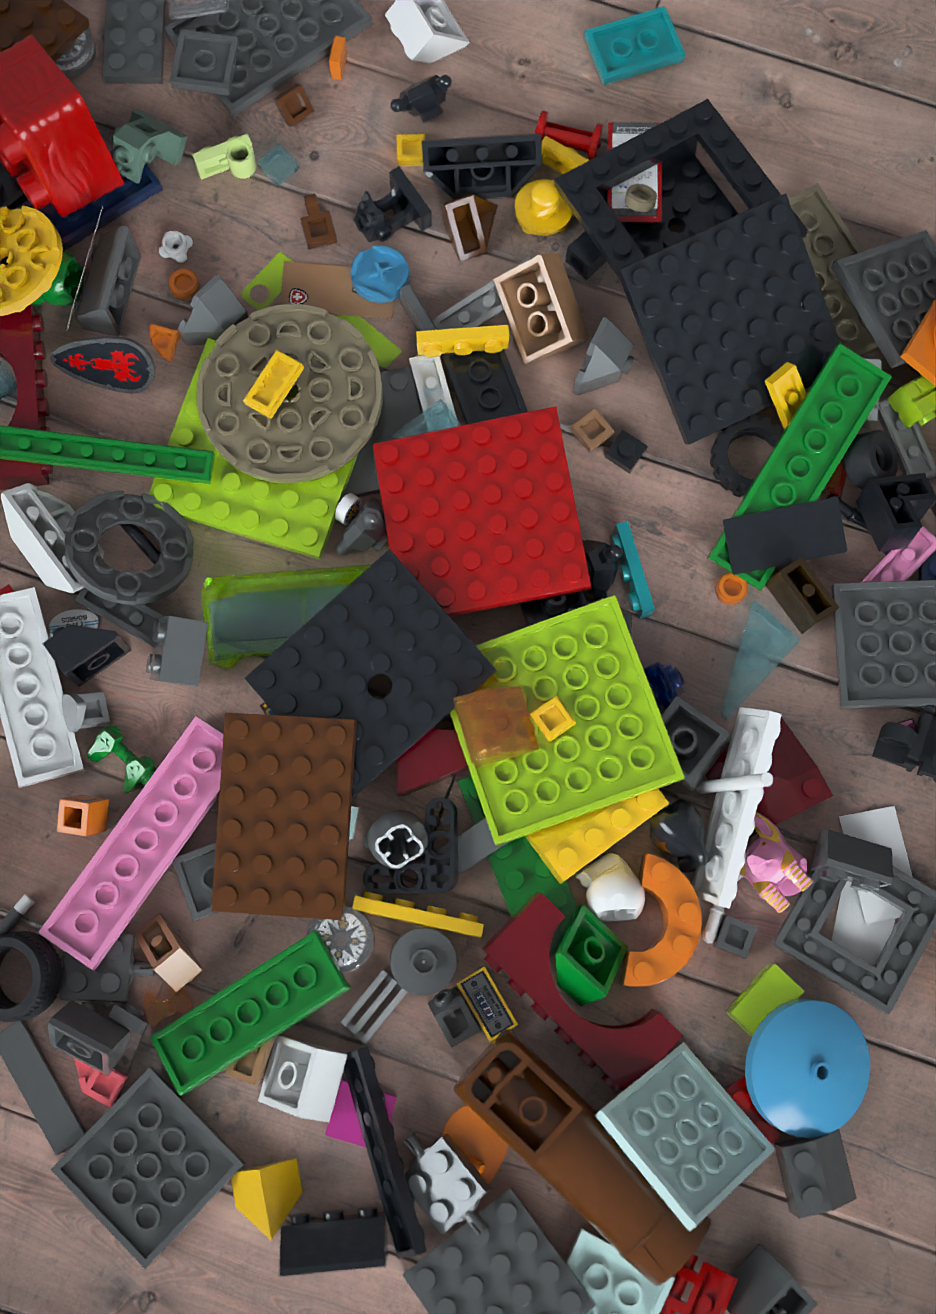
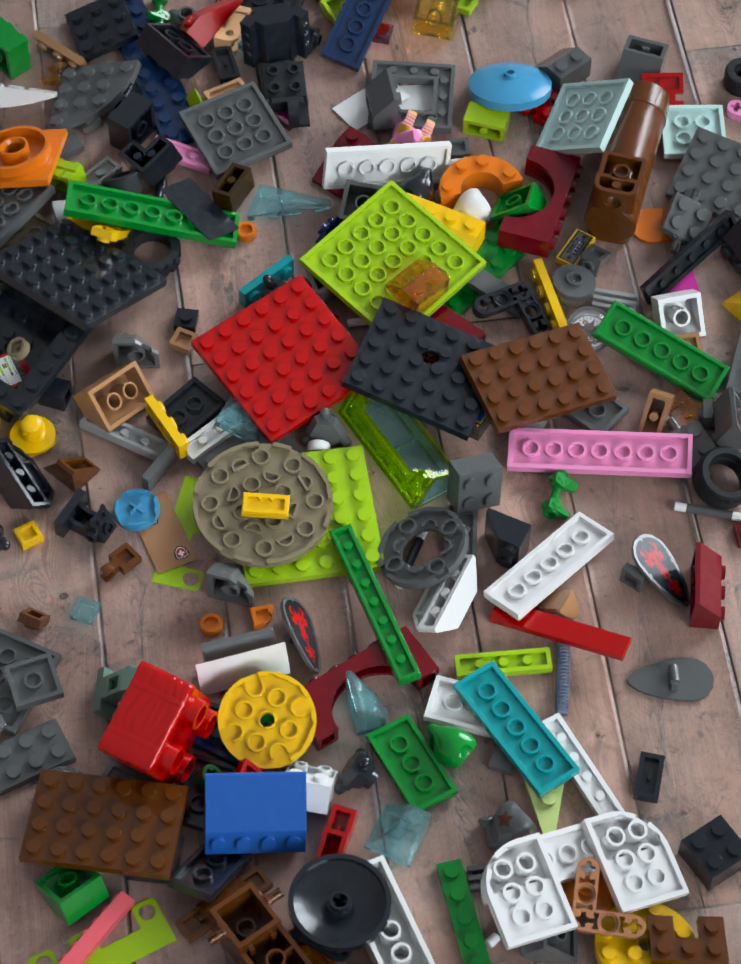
camera: 115 degrees left, 20 degrees down
(74, 617) = (488, 570): white sticker -> none
(83, 815) = (607, 491): orange brick -> none
(85, 710) = (544, 527): light grey tile -> none
(174, 238) = (182, 637): white plate -> none
(224, 157) = (104, 646): yellowish green plate -> none
(396, 838) = (511, 321): dark grey piece -> none
(553, 718) = (395, 259): yellow tile -> none
(735, 783) = (376, 159): white bar -> none

